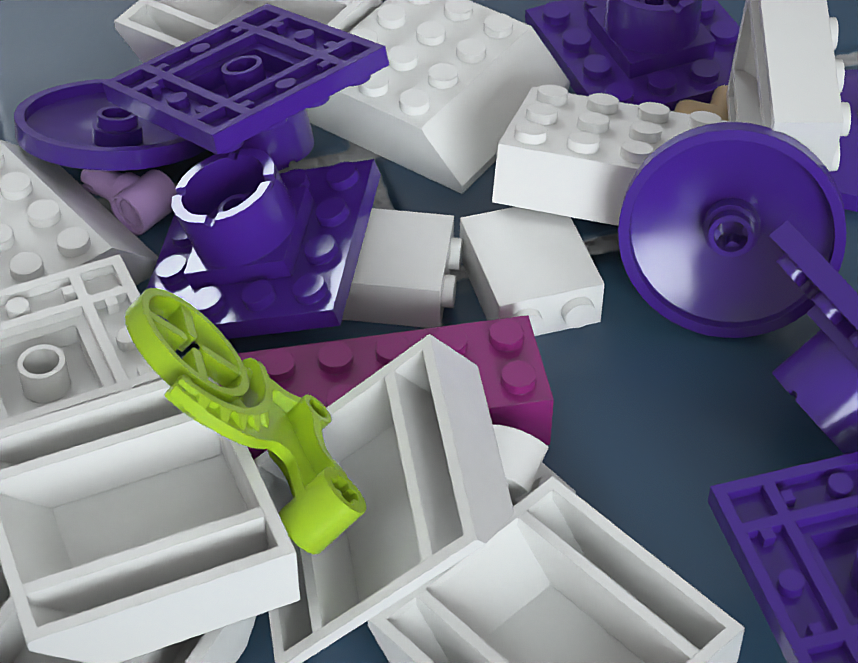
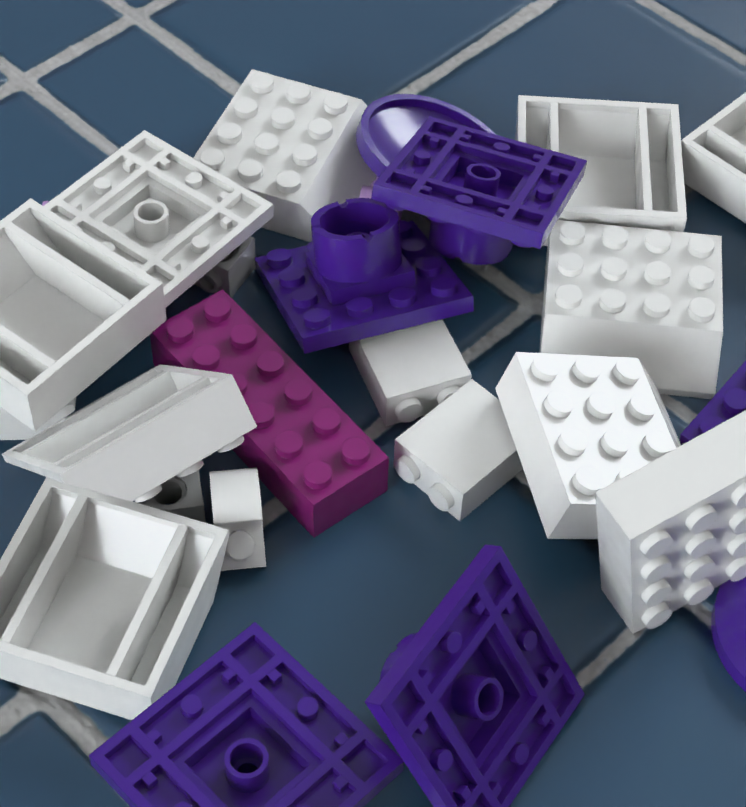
camera: 60 degrees right, 5 degrees up
(249, 412) = (137, 345): lime piece -> none
(703, 221) = (551, 529): dark purple dish -> none

